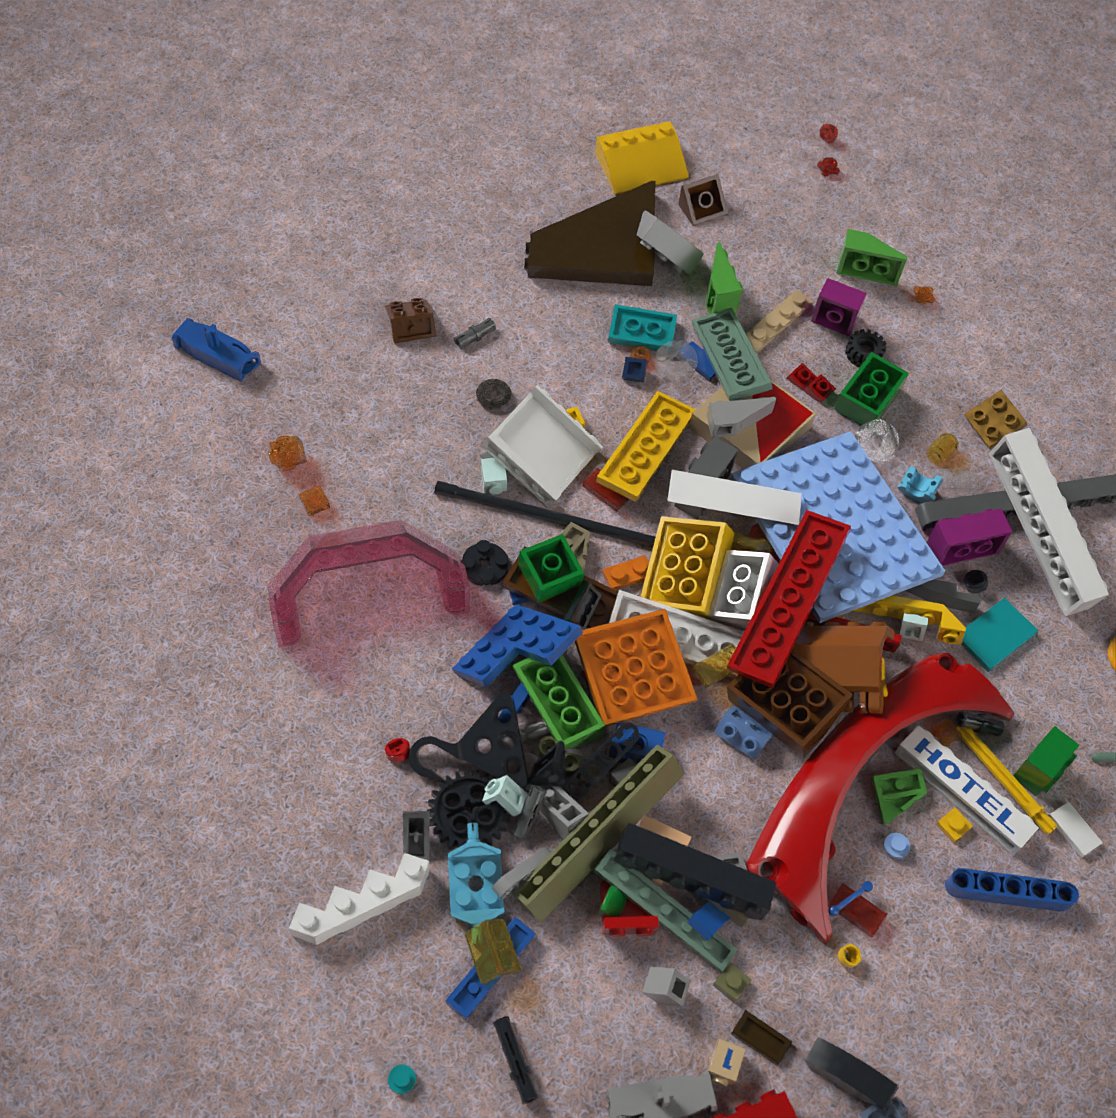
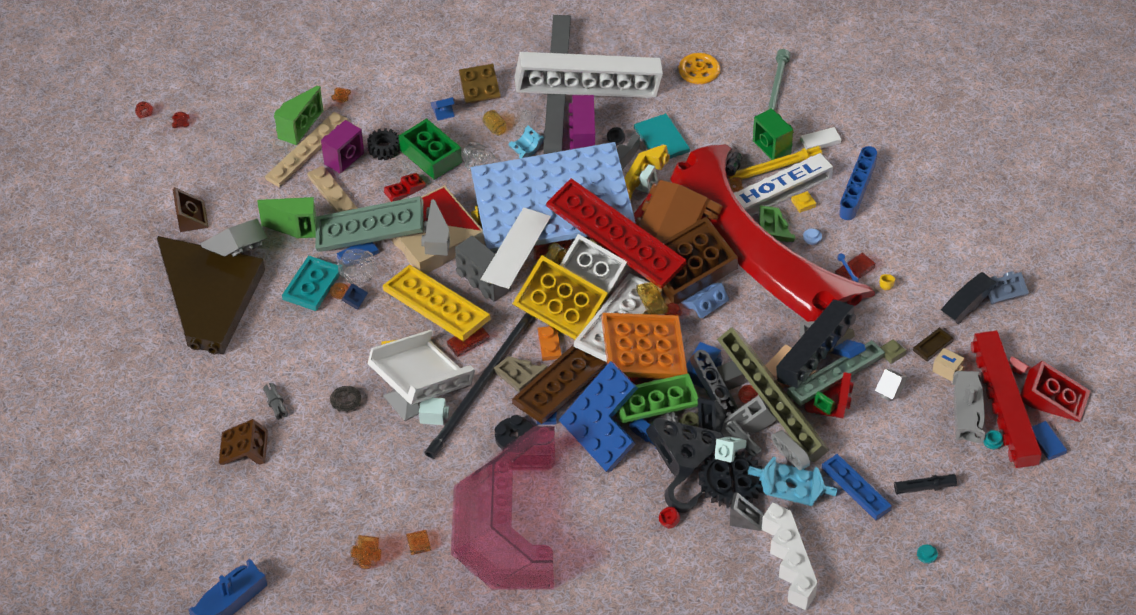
camera: 70 degrees left, 10 degrees down
(492, 950) = (848, 479): clear yellow panel -> none
(550, 568) = (545, 378): green brick -> none
(583, 605) = (580, 369): black plate -> none
(641, 156) = (121, 243): yellow slope -> none
(714, 695) = (673, 309): none -> clear red plate
(817, 276) = (303, 151): none -> tan plate
(944, 392) = (443, 108): none -> blue slope

